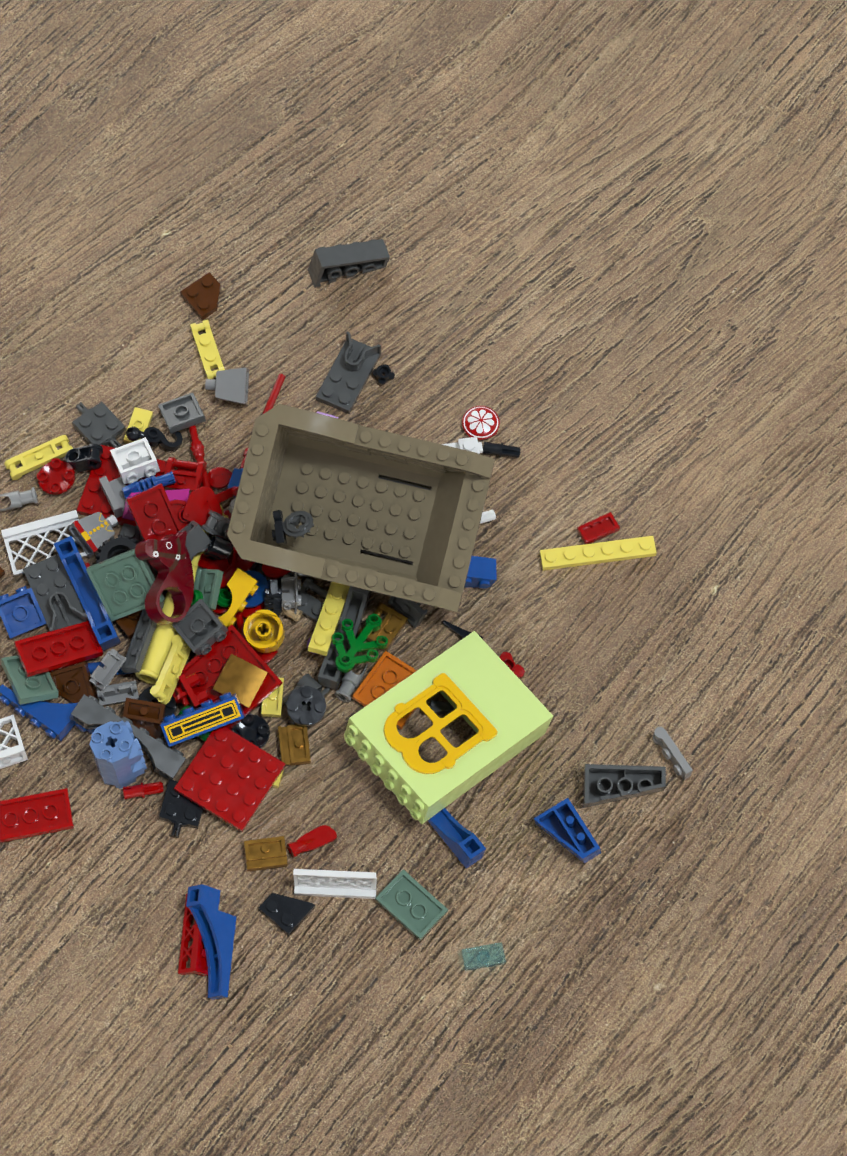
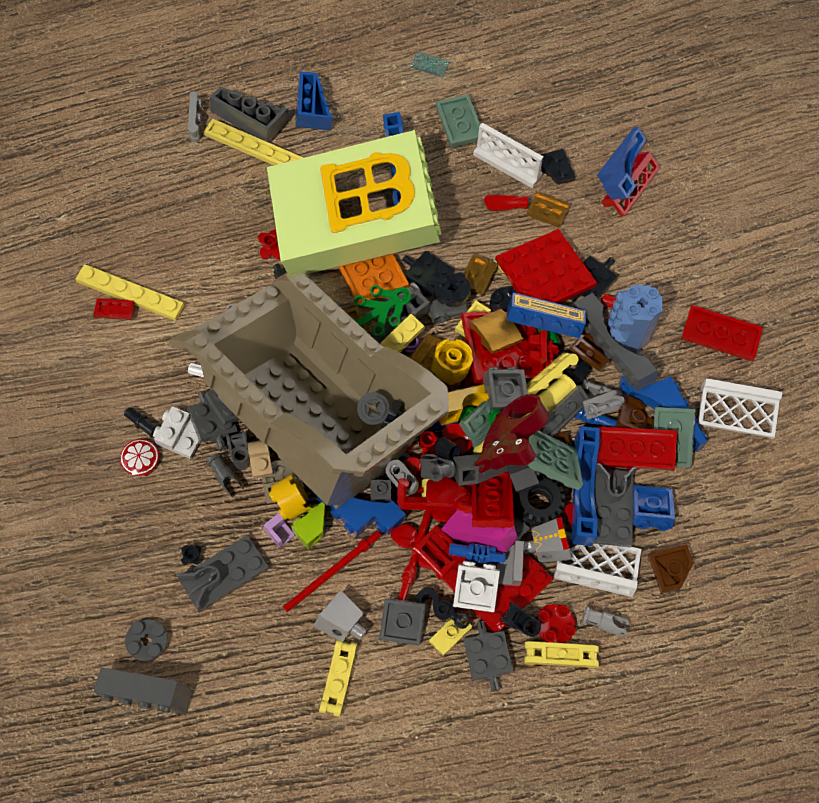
camera: 150 degrees left, 0 degrees up
(203, 295) = (306, 744): reddish brown plate -> none
(294, 643) = (425, 351): none -> pearl gold plate
(335, 720) = (426, 270): none -> black plate
(373, 289) = (154, 649): none -> dark grey plate
(597, 754) = (248, 144): none -> light yellow plate

